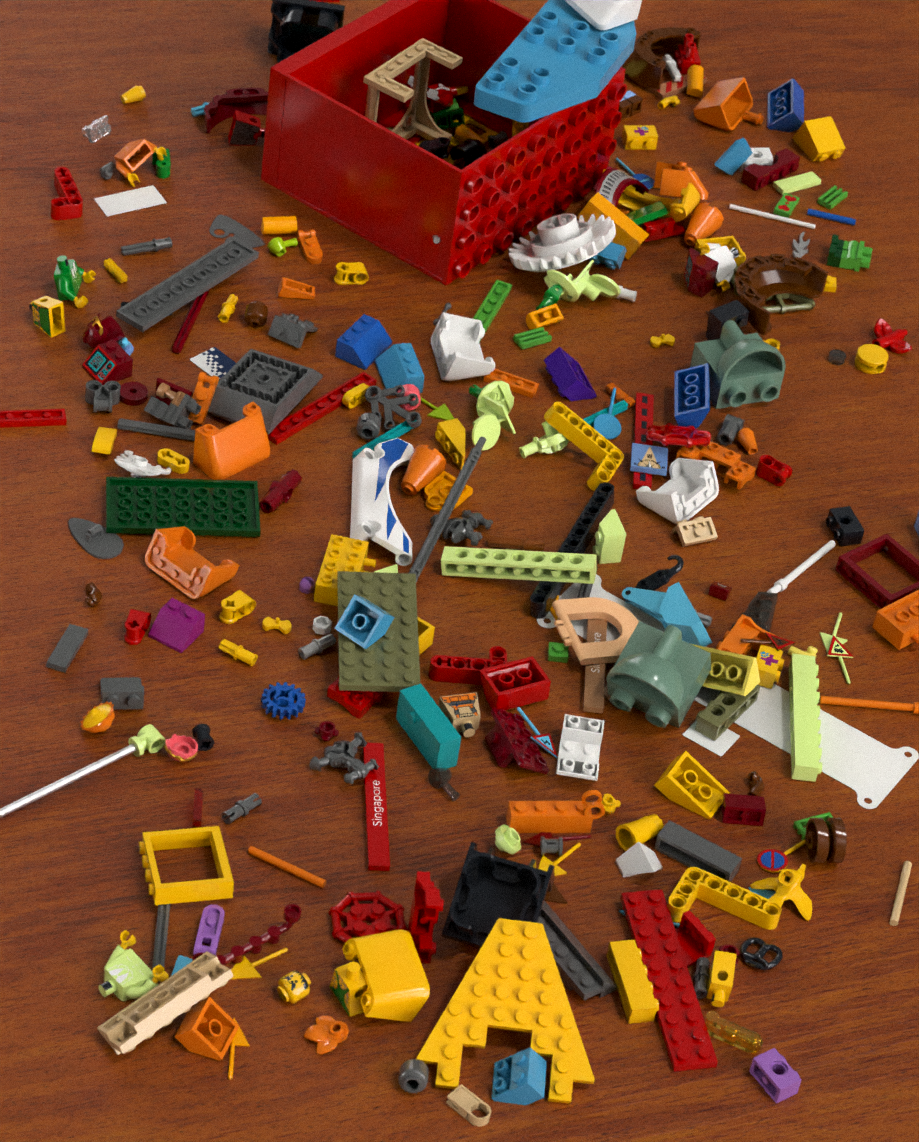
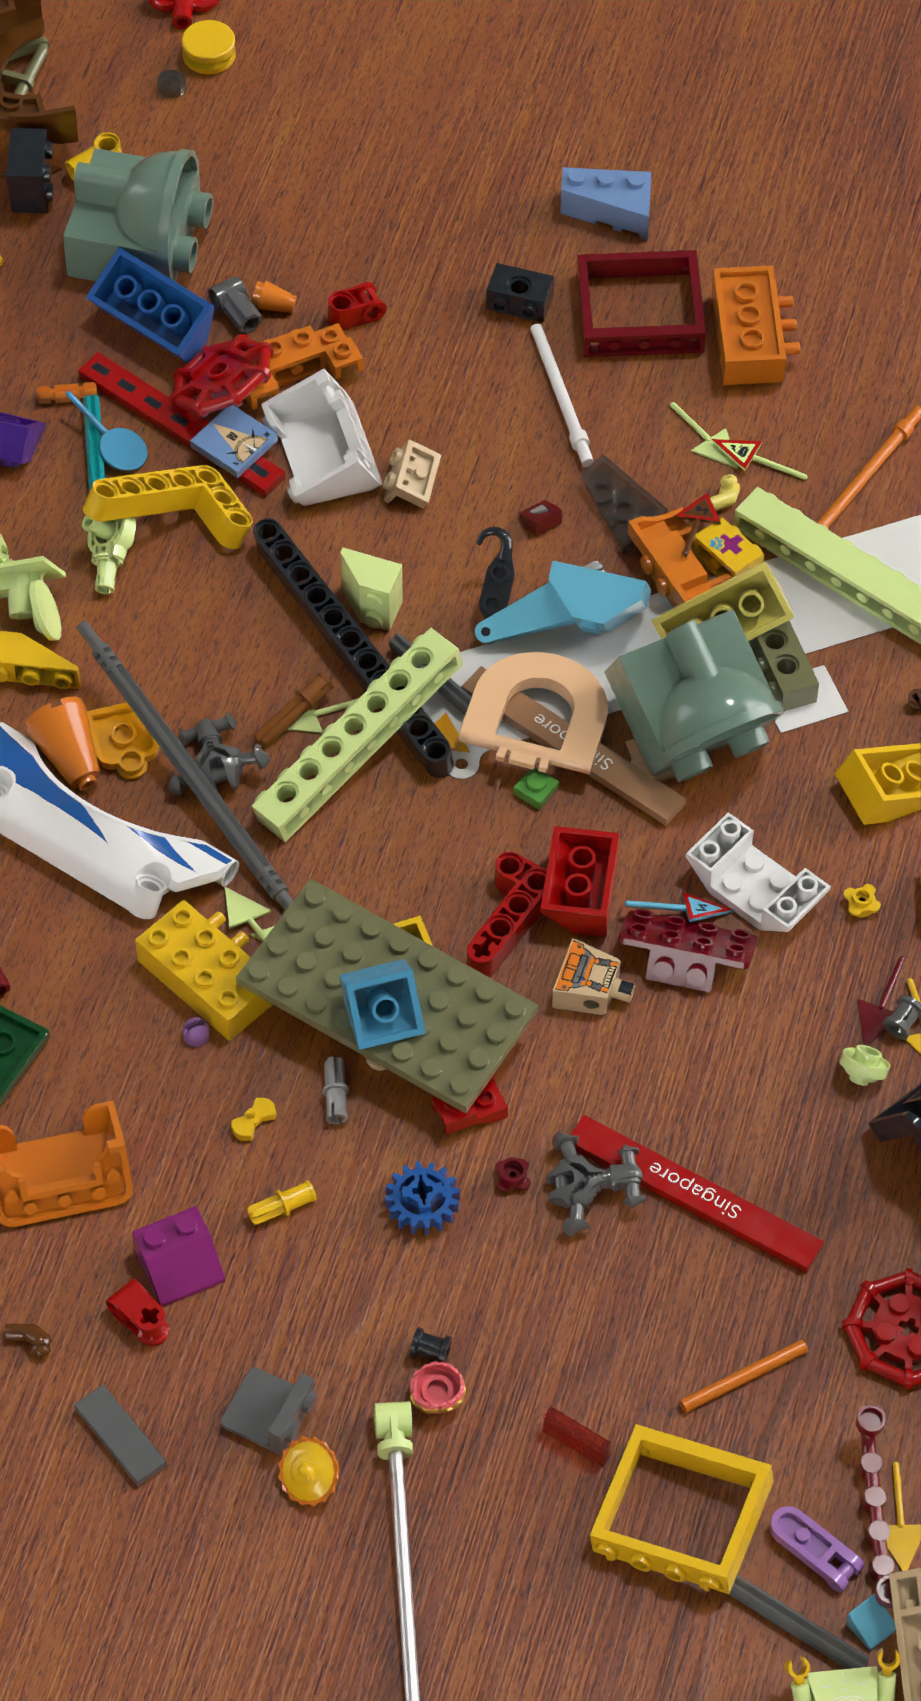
camera: 50 degrees left, 15 degrees up
(236, 607) = (187, 1154): yellow piece -> none
(241, 808) = (600, 1373): dark grey pin -> none
(322, 625) = (295, 1058): white tile -> none
(428, 727) = (604, 1040): teal brick -> none
(439, 779) = (695, 1082): clear smoke bar -> none
(554, 815) = (854, 982): orange hinge -> none

